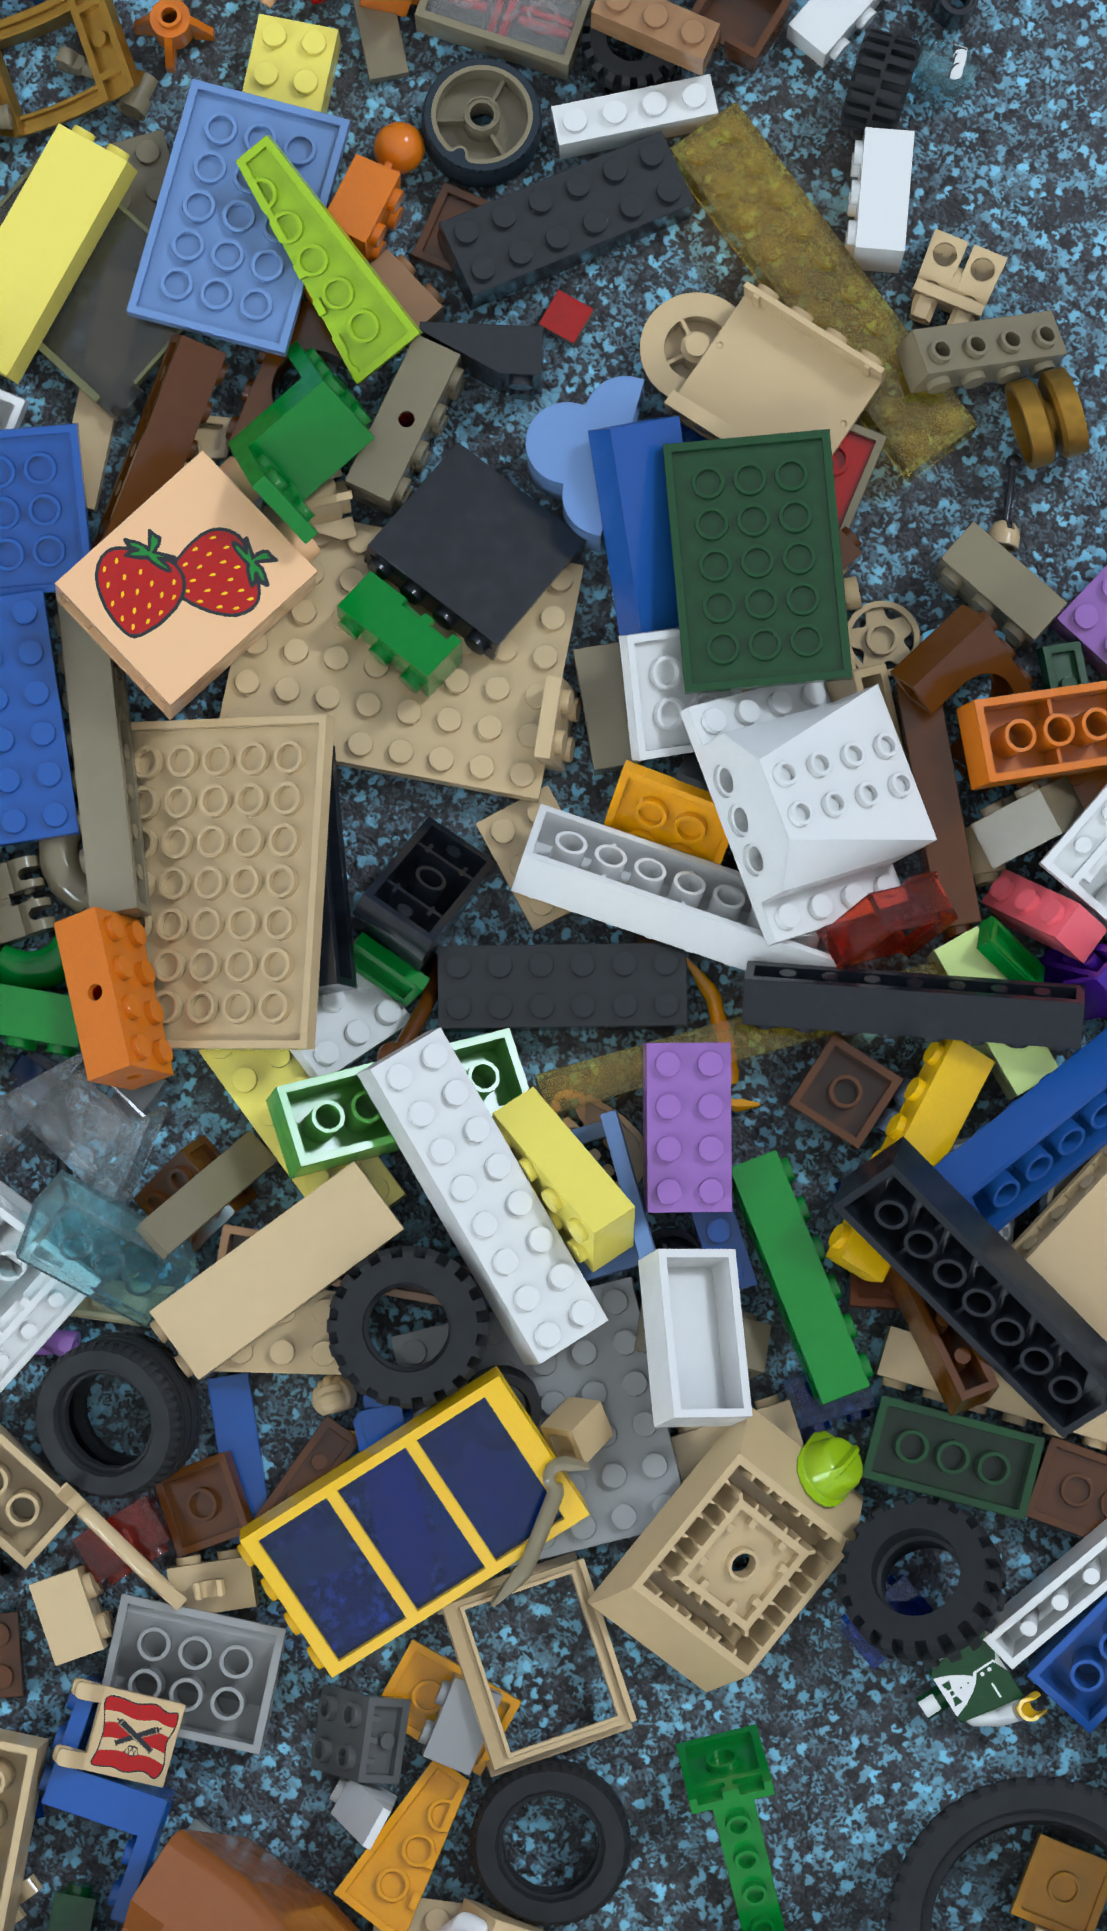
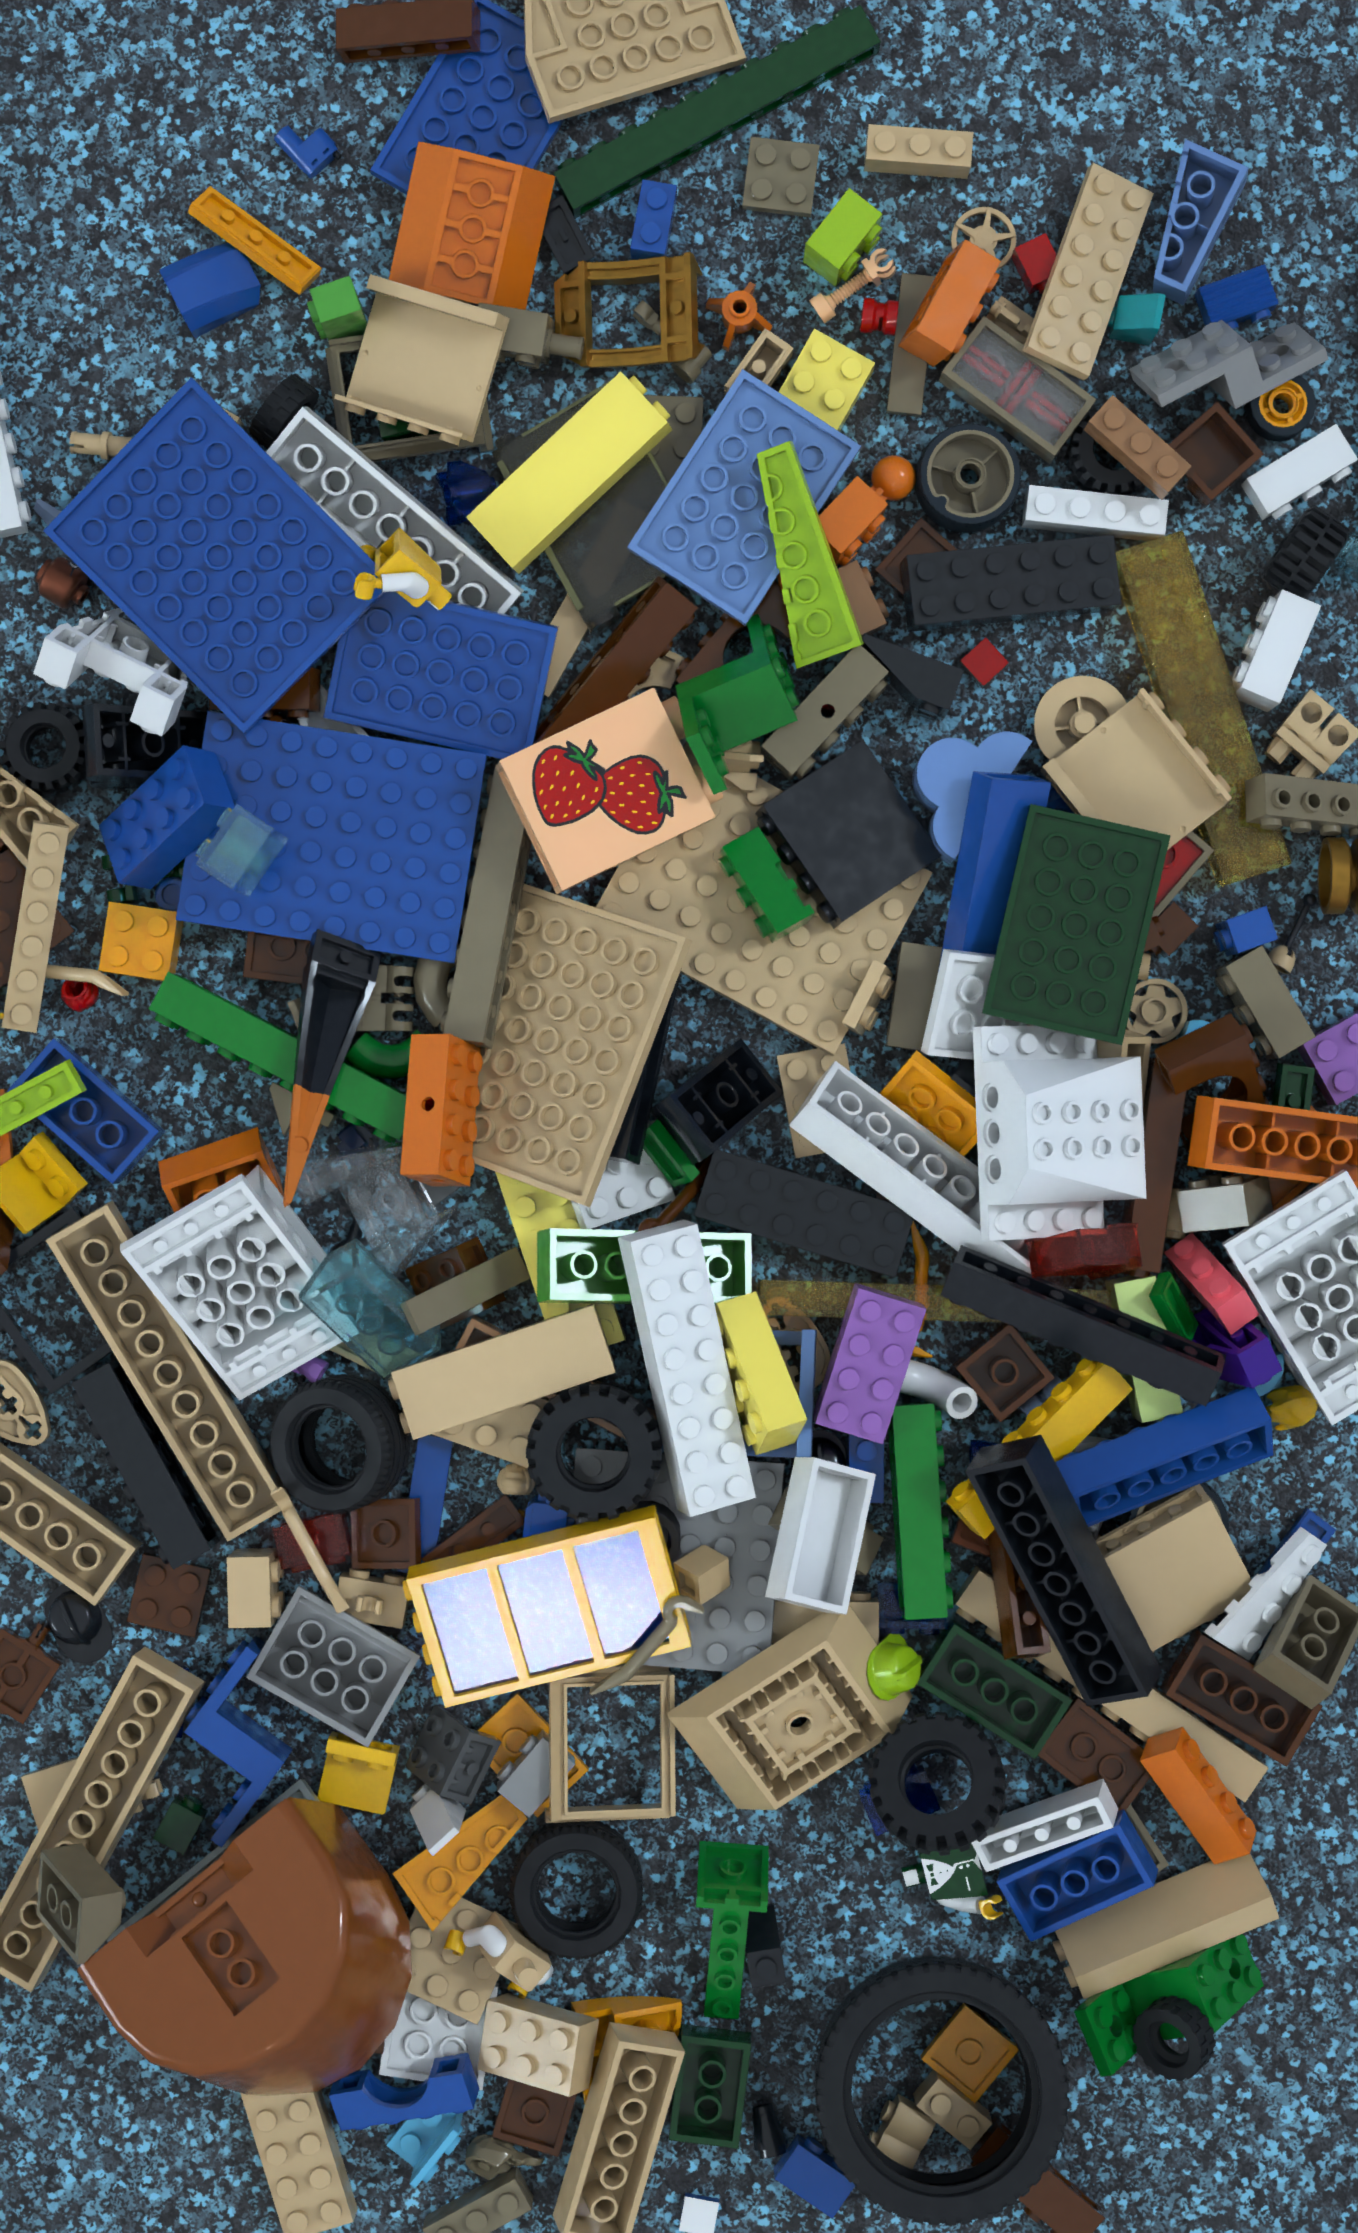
camera: 10 degrees right, 5 degrees up
(129, 1734) = (270, 1700): flag -> none
(217, 62) = (764, 359): none -> tan brick
(259, 1792) = (358, 1774): none -> yellow bracket
(787, 1134) = (939, 1388): none -> white cylinder
(787, 1841) = (764, 1949): none -> black slope
(875, 538) = (1177, 929): none -> reddish brown brick
(950, 515) = (1245, 932): none -> blue brick

